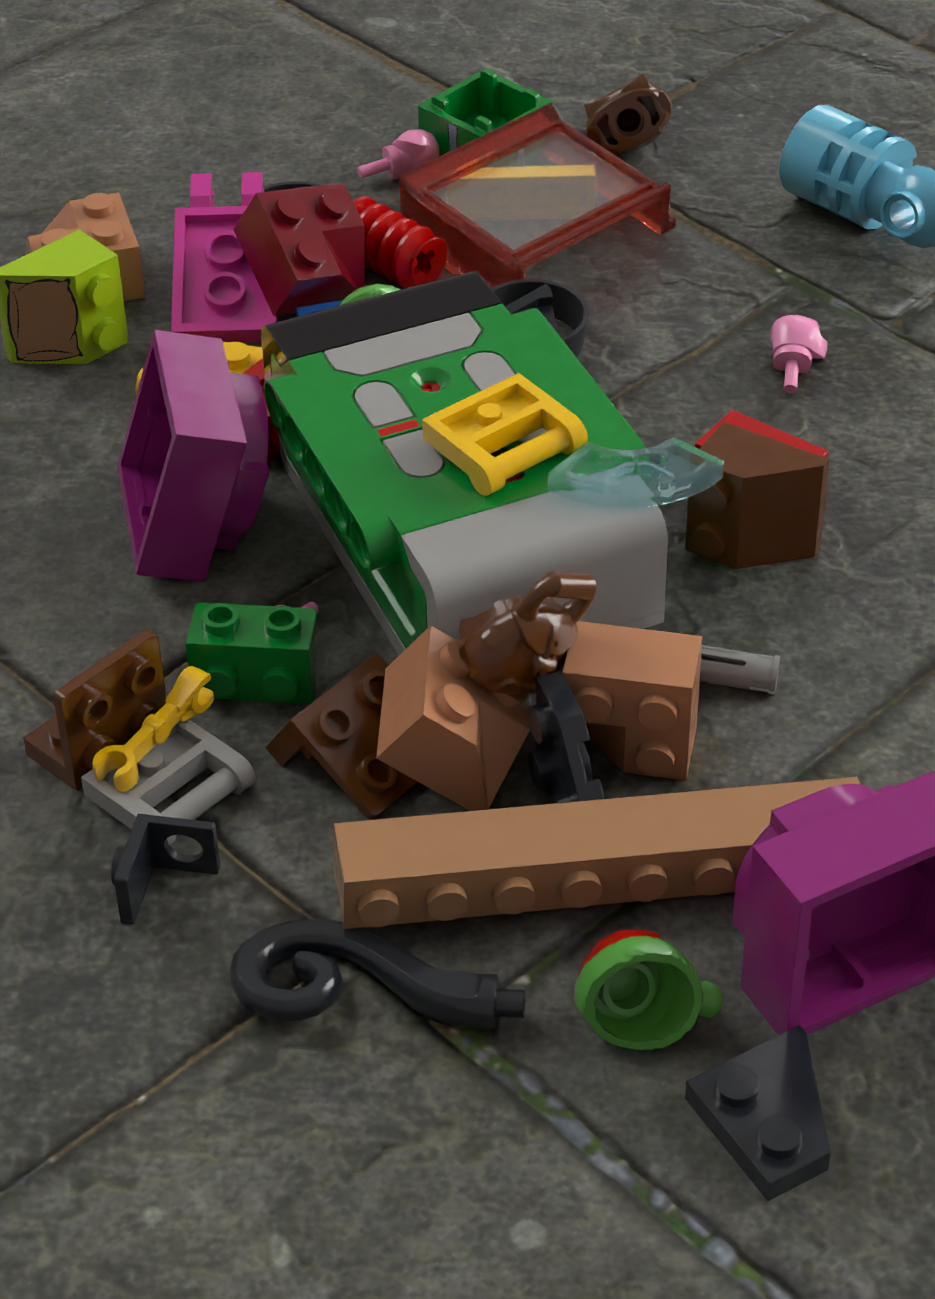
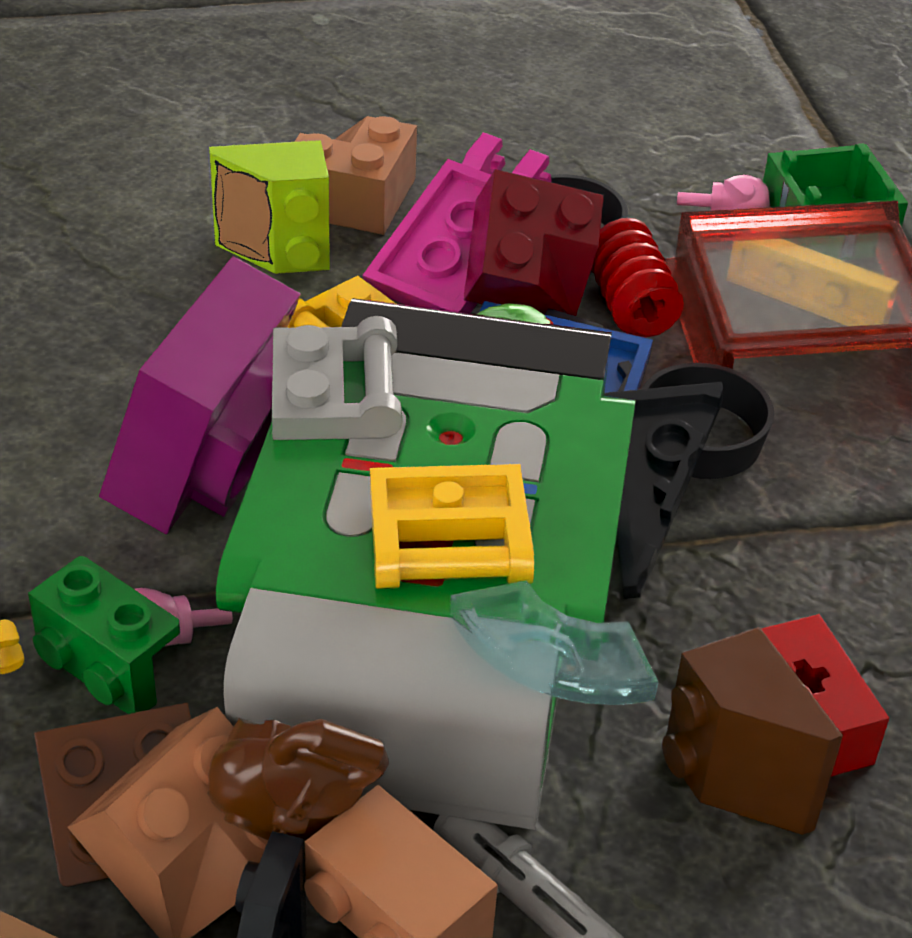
camera: 30 degrees right, 0 degrees up
(311, 393) = (311, 382): none -> light grey plate

